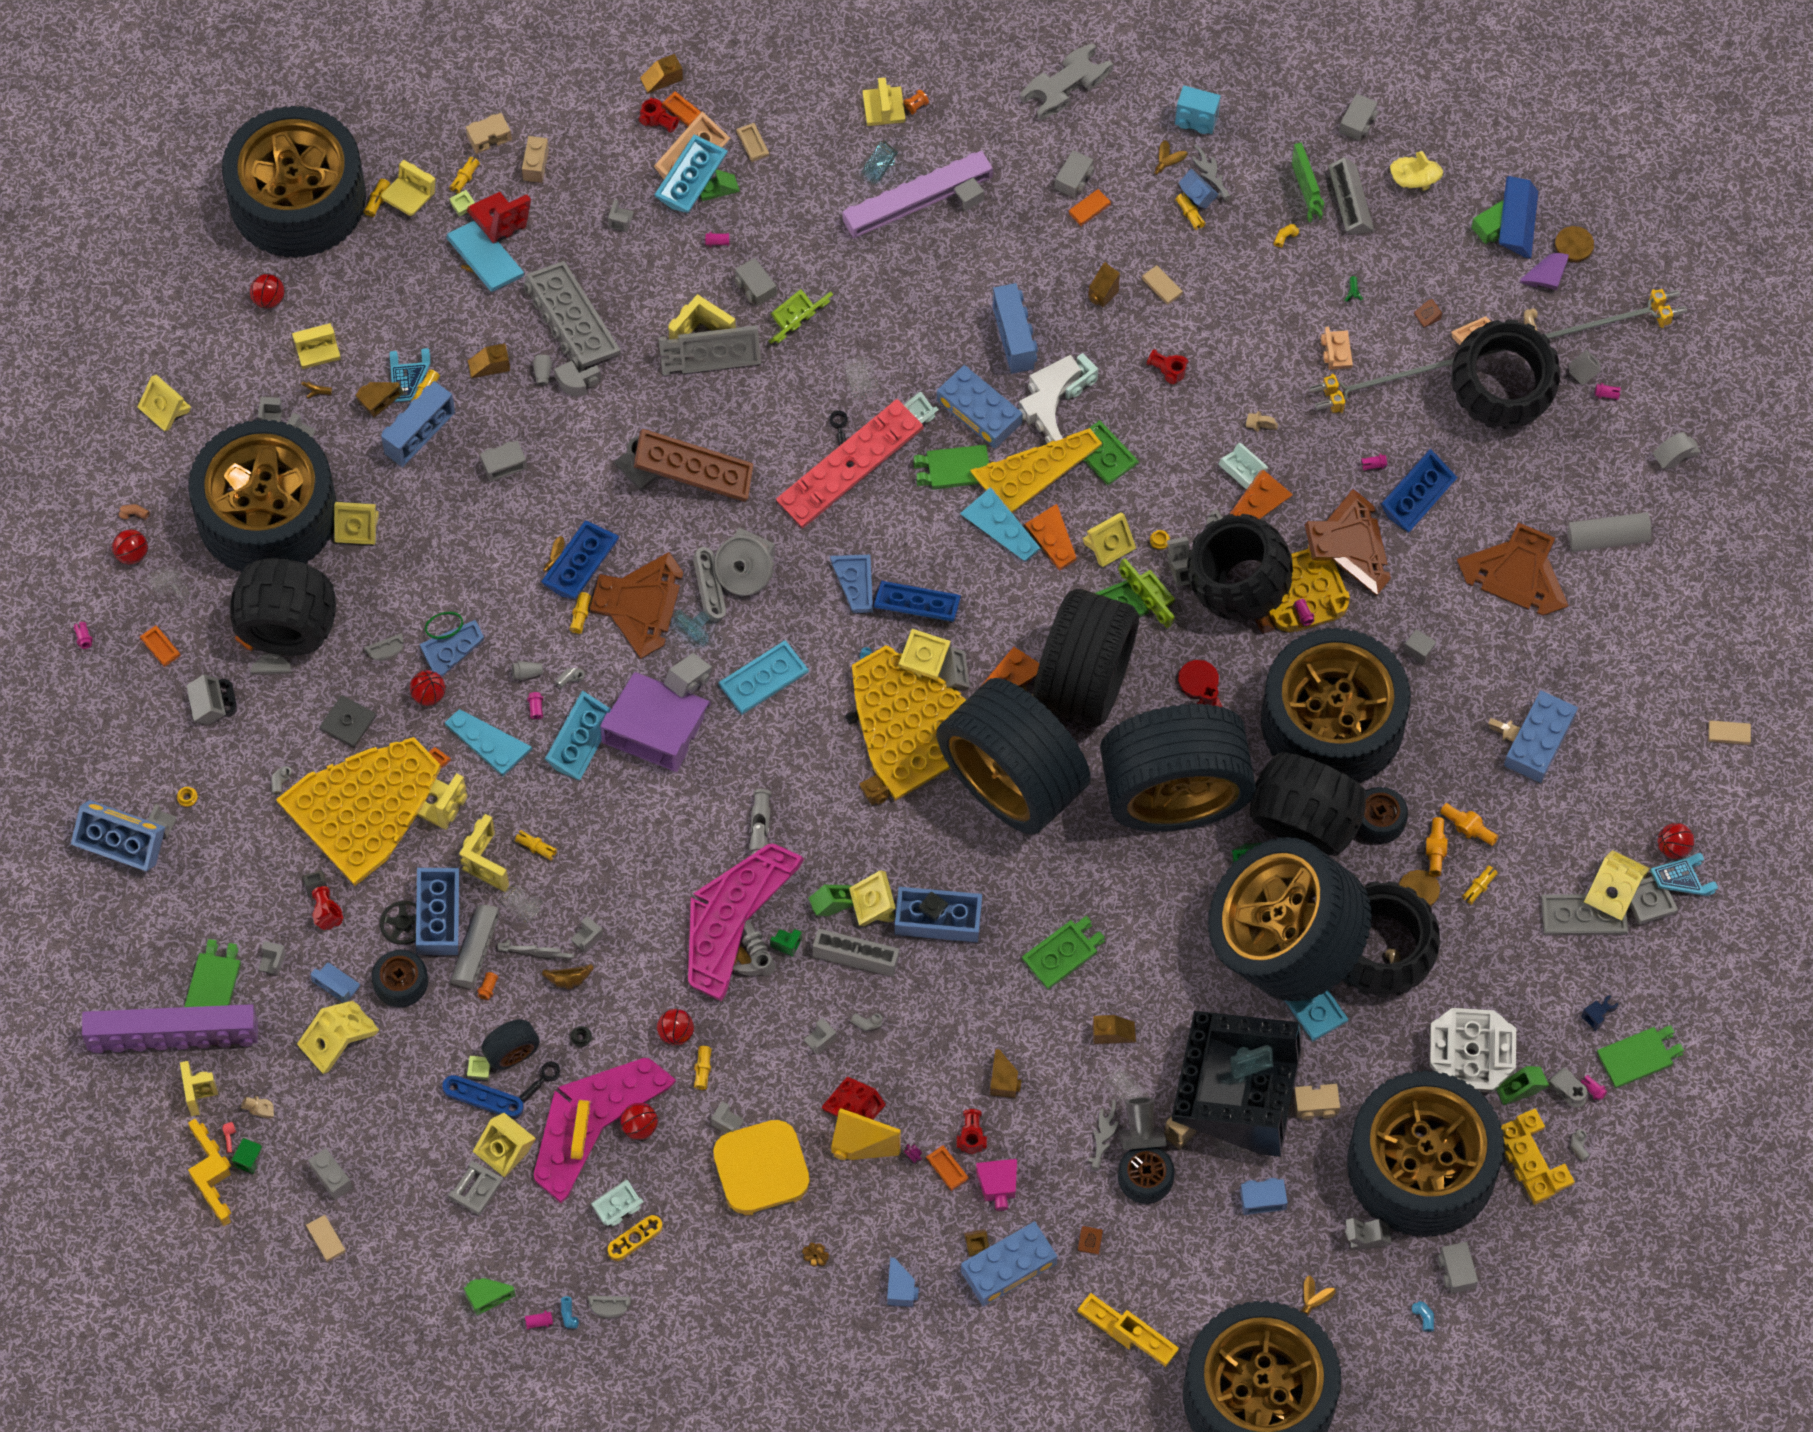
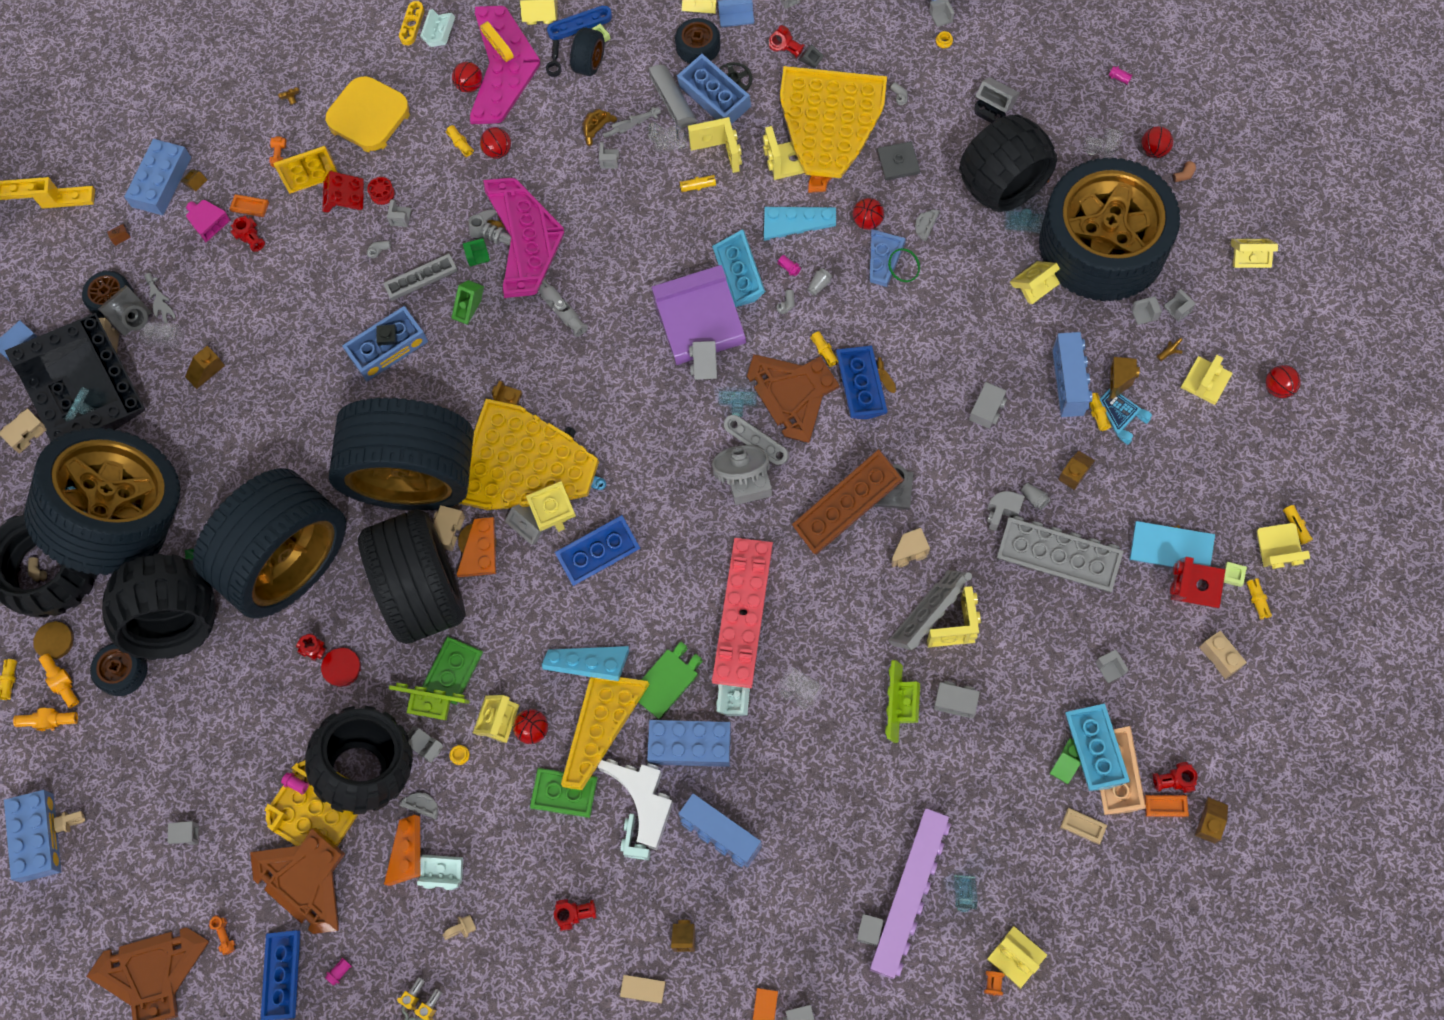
camera: 145 degrees right, 5 degrees up
(160, 646) = (1067, 109): orange tile -> none
(286, 154) = (1391, 442): wheel -> none
(485, 991) = (639, 79): orange pin -> none
(487, 132) = (1282, 647): tan brick -> none
(581, 1030) = (554, 96): pearl dark grey plate -> none
(677, 409) = (911, 546): none -> tan slope
(716, 239) = (1022, 713): dark pink pin -> none
(726, 1120) = (414, 122): light grey panel -> none
(763, 677) = (657, 410): medium azure tile -> none
(816, 1075) = (381, 191): none -> red wheel
(841, 436) = (772, 633): black piece -> none
(855, 580) = (657, 531): medium blue wing -> none
(868, 1210) = (277, 143): none -> orange bar
(873, 899) = (437, 319): light yellow bracket -> none
(901, 1286) = (218, 116): medium blue slope -> none
(913, 1152) = (277, 194): magenta plate -> none
(1004, 1077) = (253, 281): pearl gold slope -> none
(1051, 535) = (545, 688): orange wing -> none
(1063, 952) = (281, 393): bright green tile -> none
(1088, 510) = (530, 726): none -> red piece
(1359, 663) = (153, 697): wheel -> none
(1440, 561) = (219, 925): none -> orange bar

